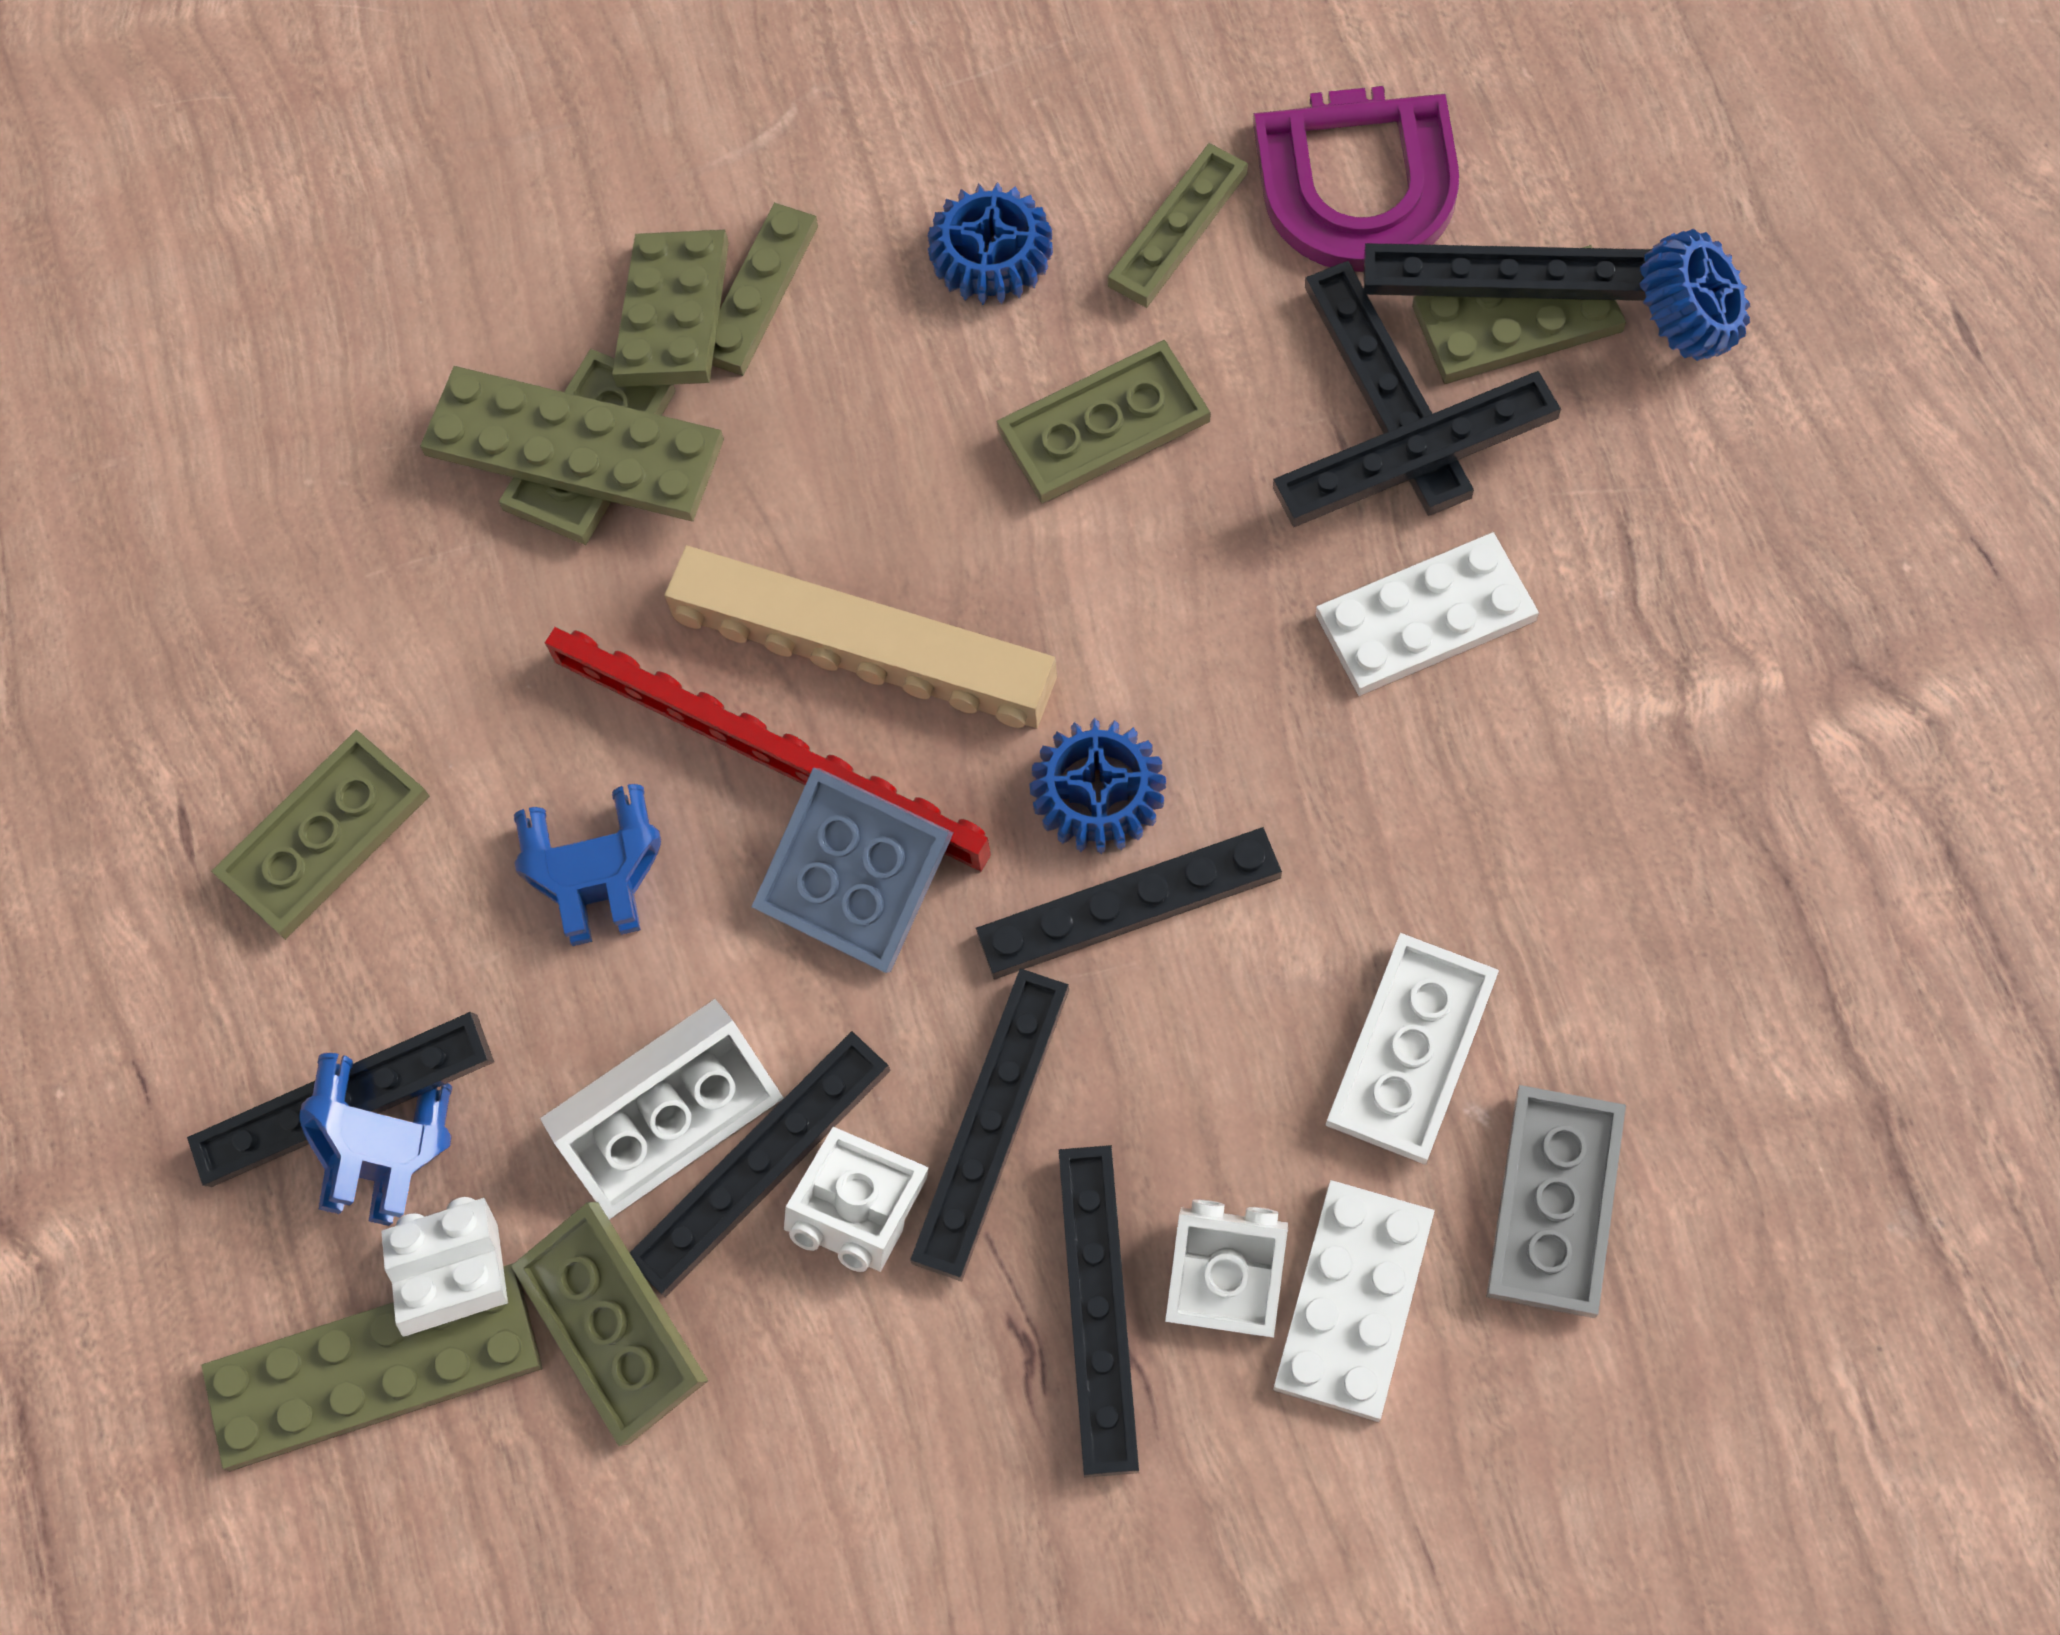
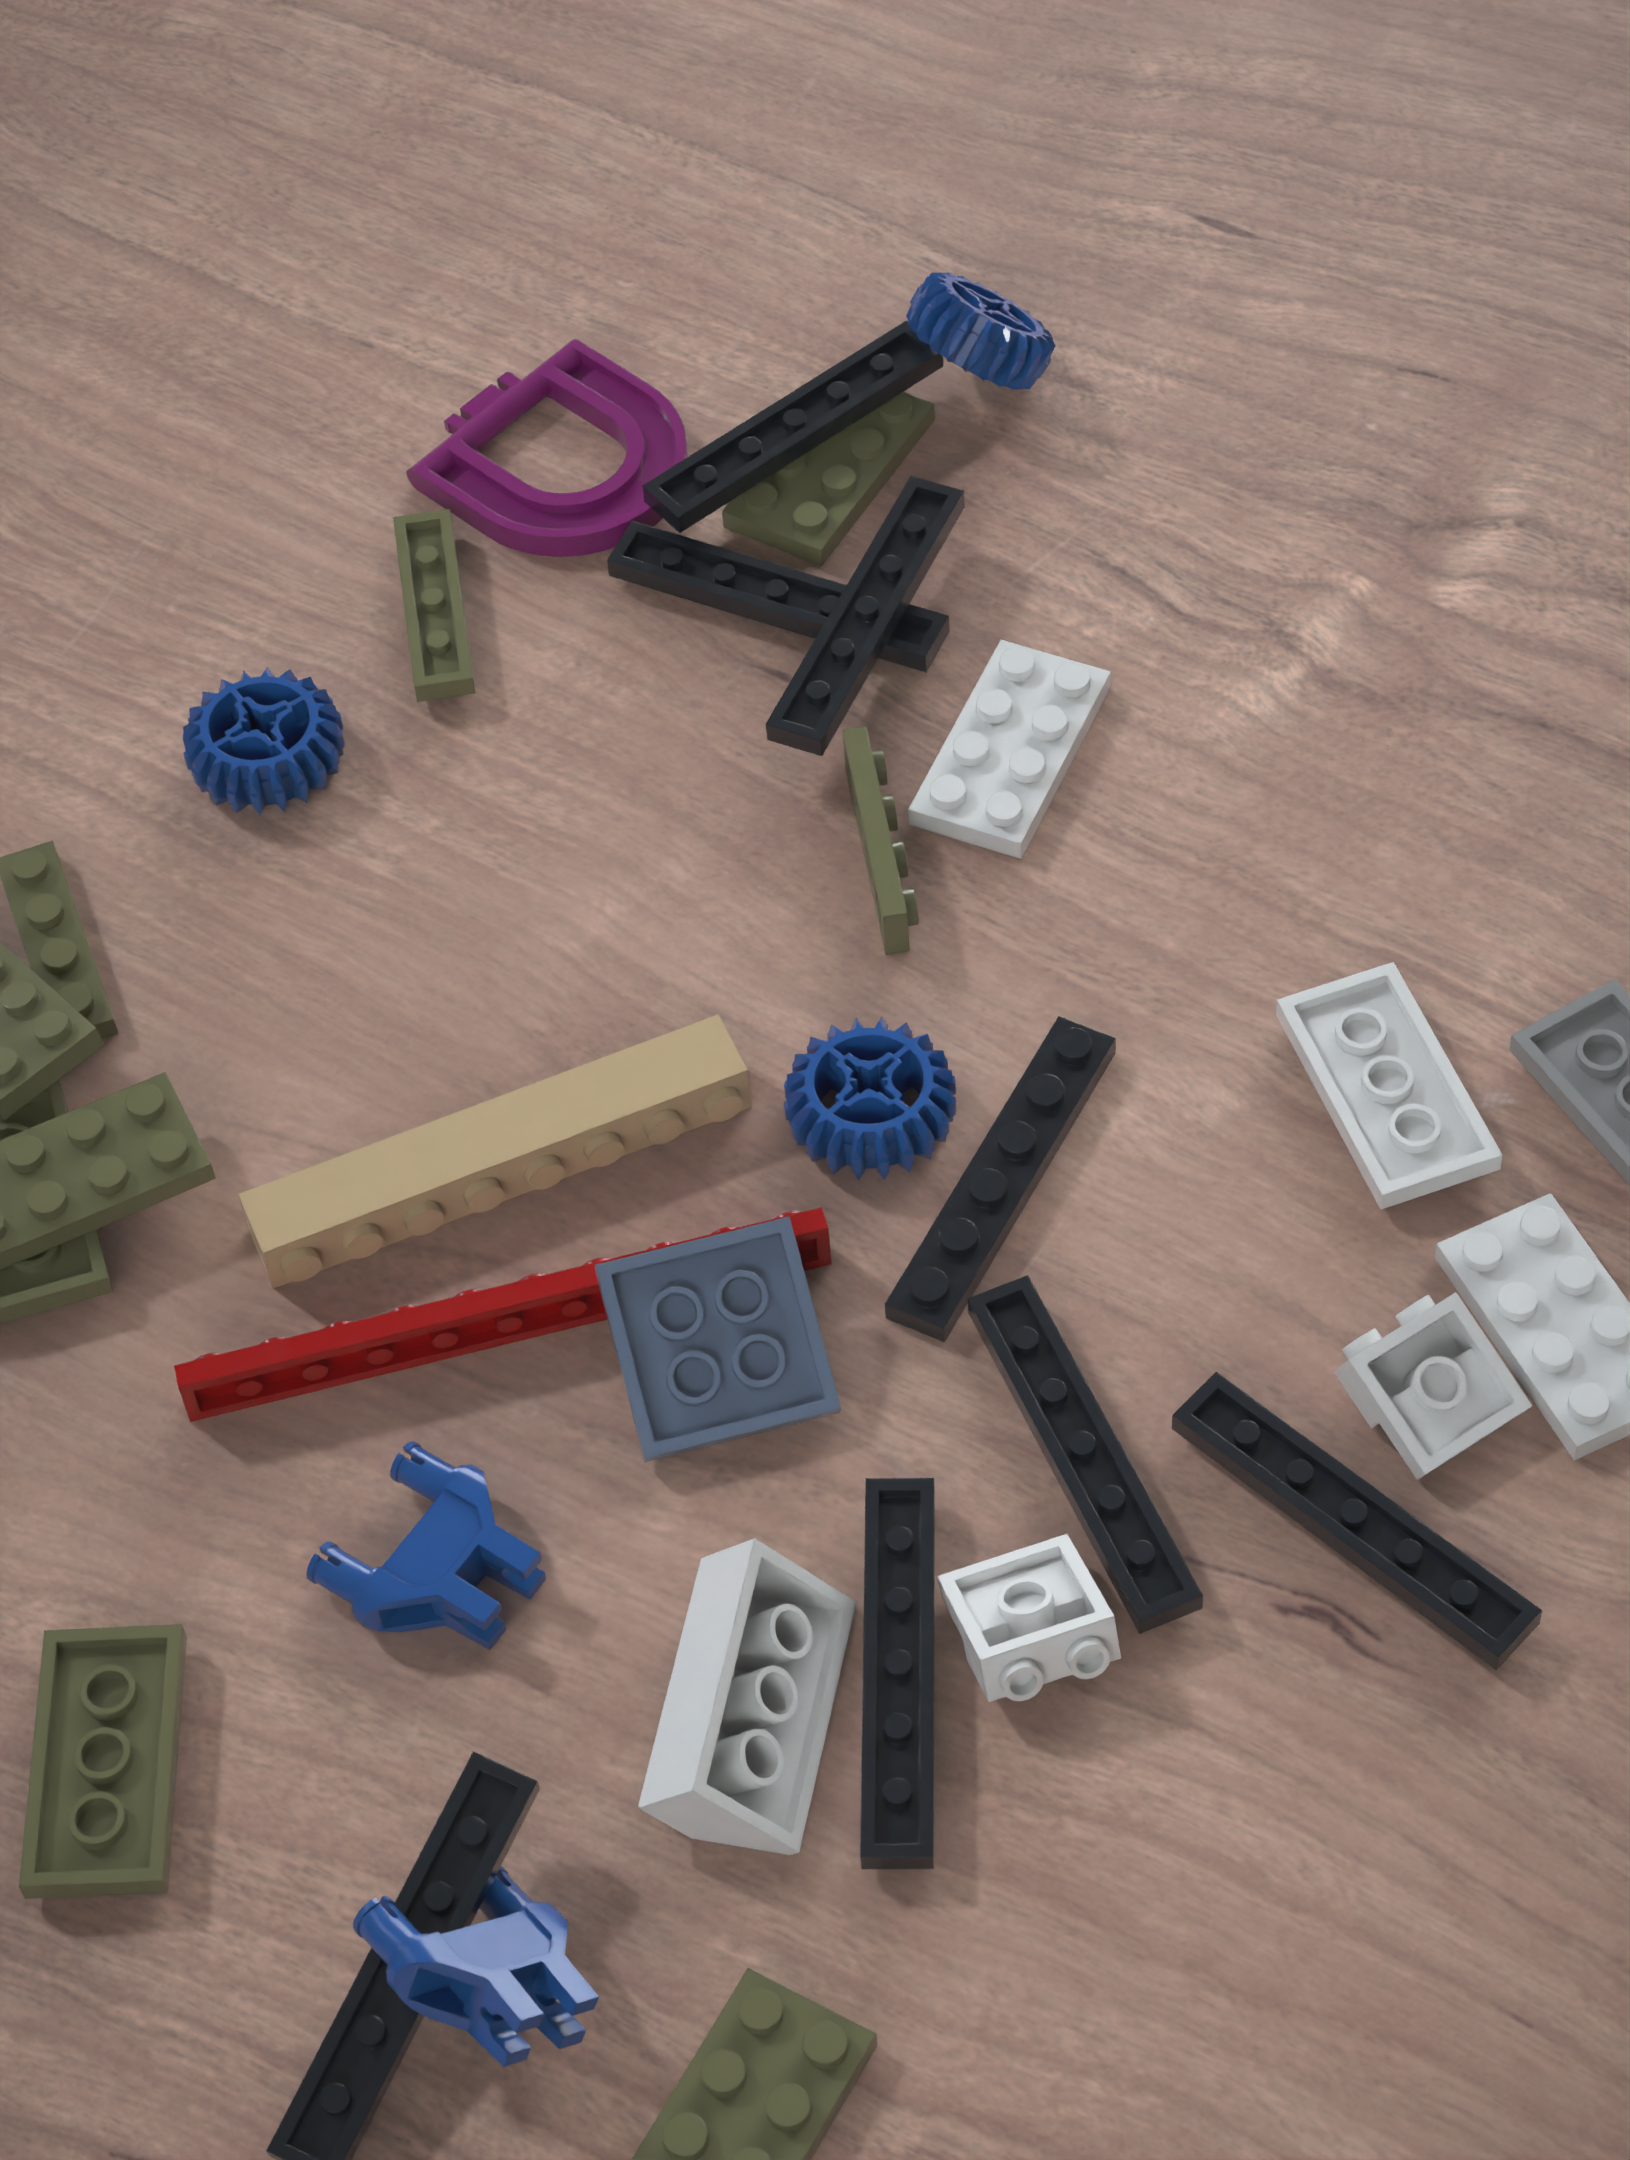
camera: 45 degrees left, 15 degrees down
(444, 1265) = (684, 2020): white plate -> none
(609, 1323) = (910, 1925): olive plate -> none
(1103, 421) = (538, 808): olive plate -> none
(1266, 626) = (883, 858): none -> olive plate

